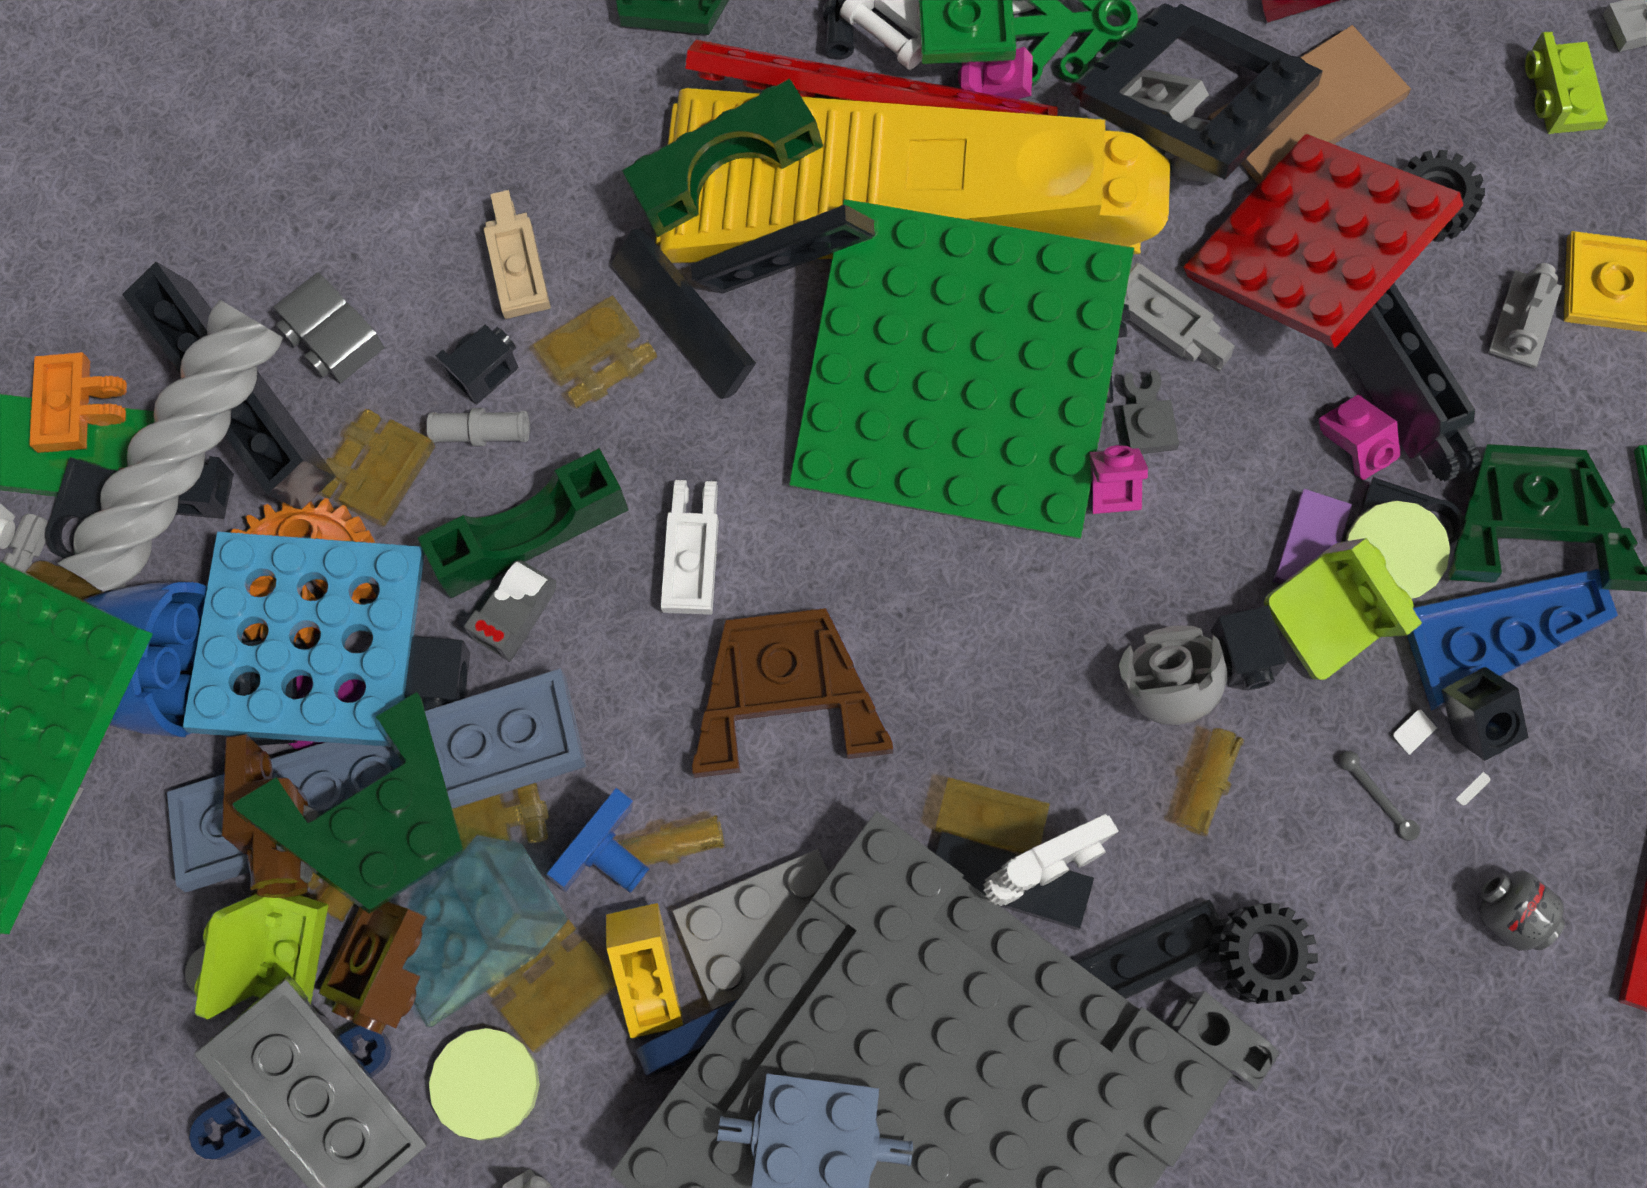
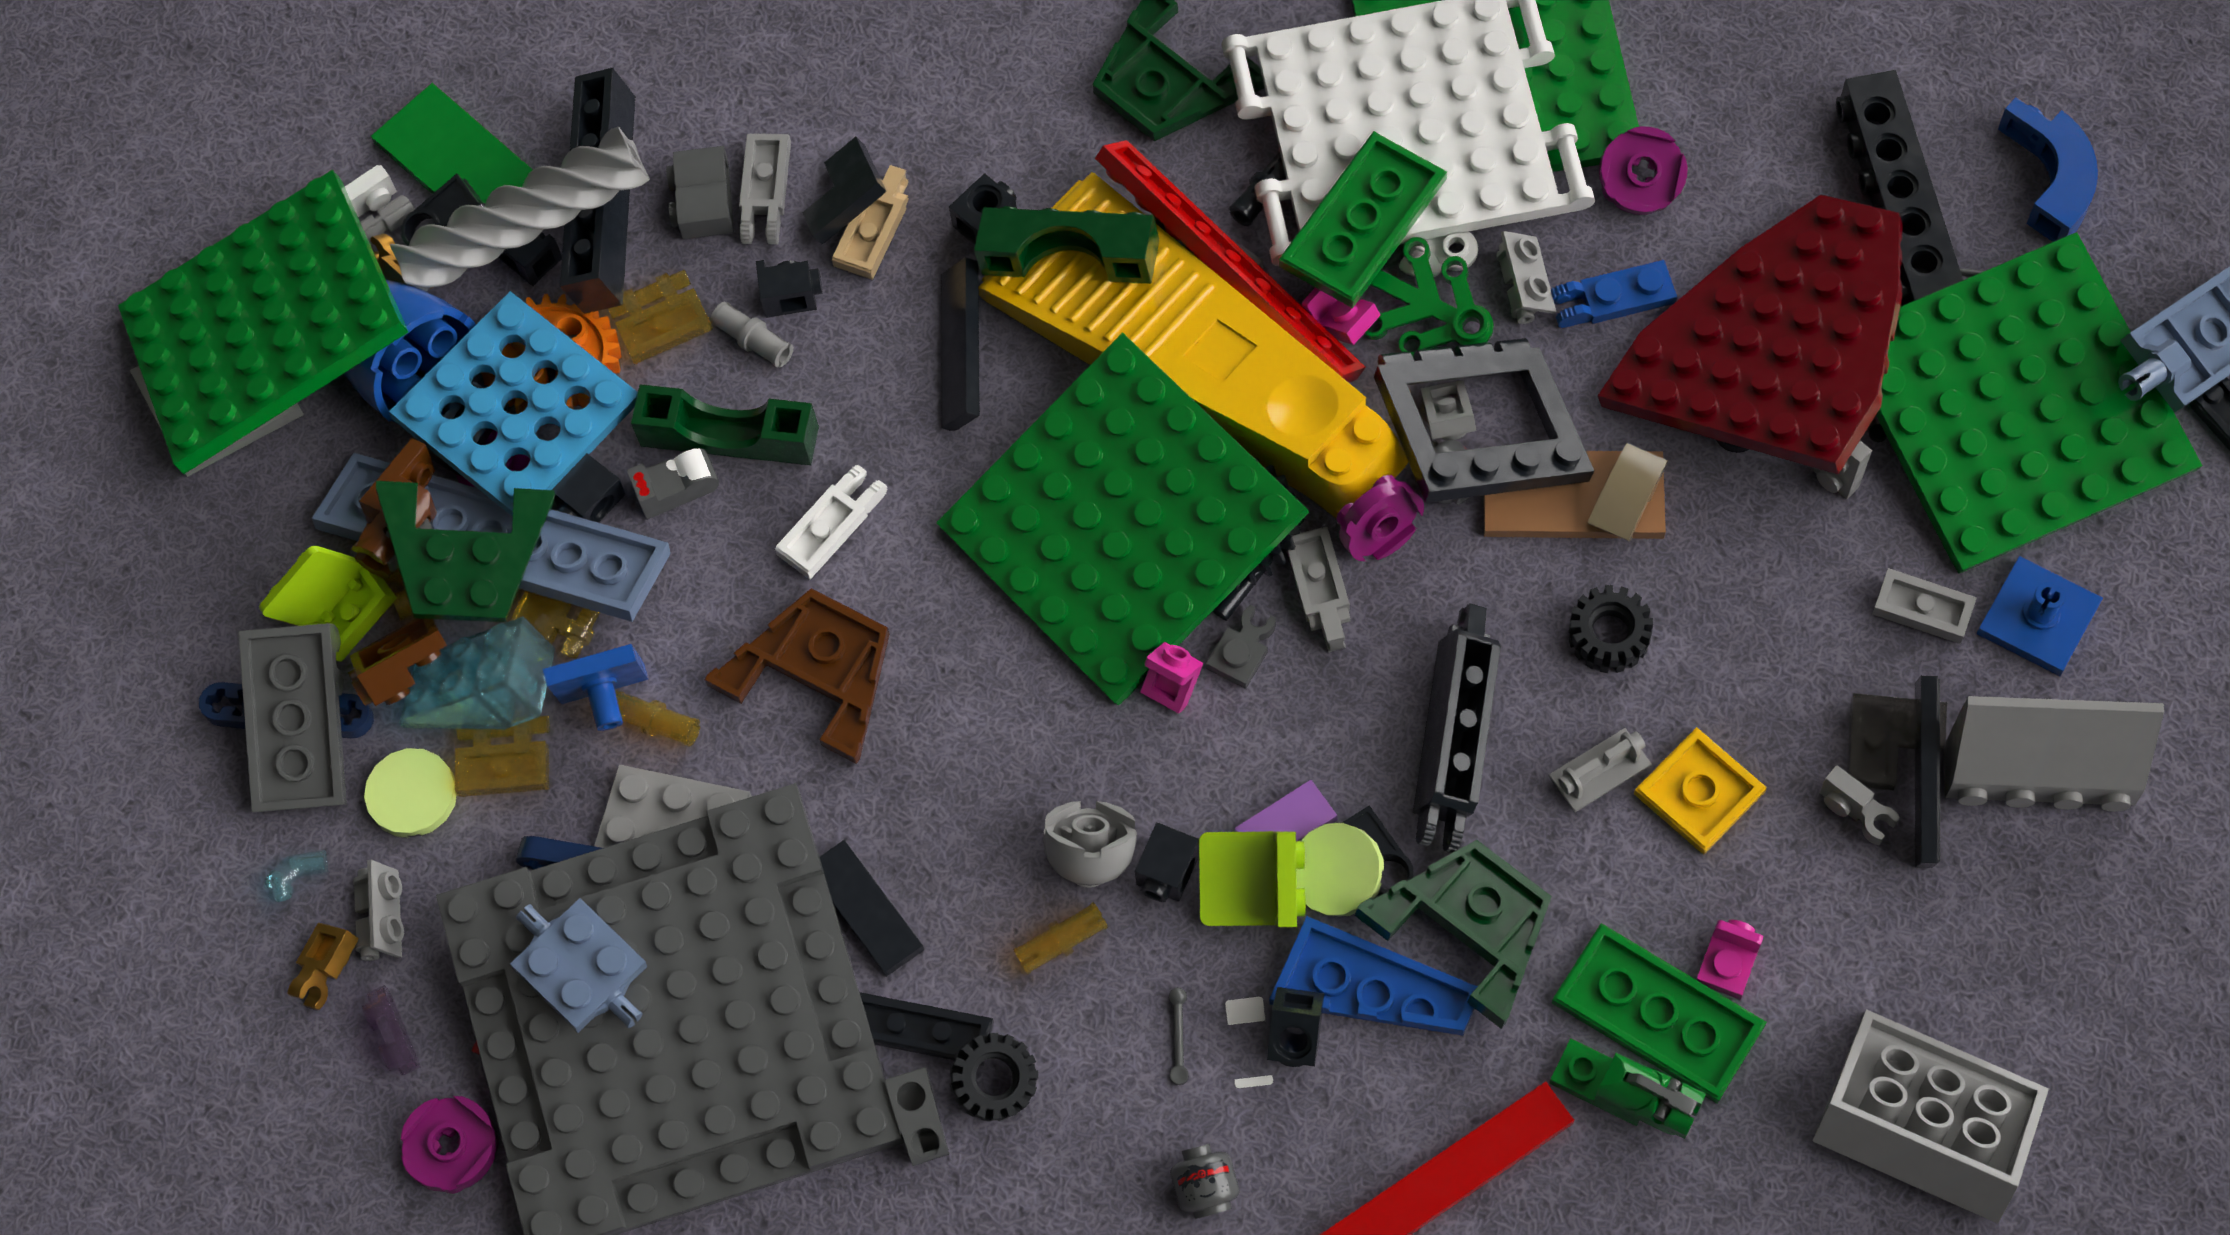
camera: 40 degrees right, 5 degrees down
(62, 399) = (481, 130): orange hinge -> none
(380, 284) = (764, 184): none -> light grey hinge
(476, 241) = (854, 190): none -> black tile
(589, 340) = (877, 321): clear yellow plate -> none
(602, 199) = (982, 193): none -> black brick
(643, 970) = (566, 786): yellow arch -> none
(783, 249) = (1053, 342): black tile -> none
(992, 816) = (886, 854): clear yellow plate -> none
(1049, 860) = (893, 903): white hinge -> none
(1186, 224) = (1380, 519): none -> magenta plate
(1323, 238) = (1468, 596): red plate -> none
(1363, 72) = (1627, 492): none -> dark tan slope
(1364, 434) = (1390, 772): dark pink bracket -> none
(1565, 85) = (1798, 612): lime bracket -> none

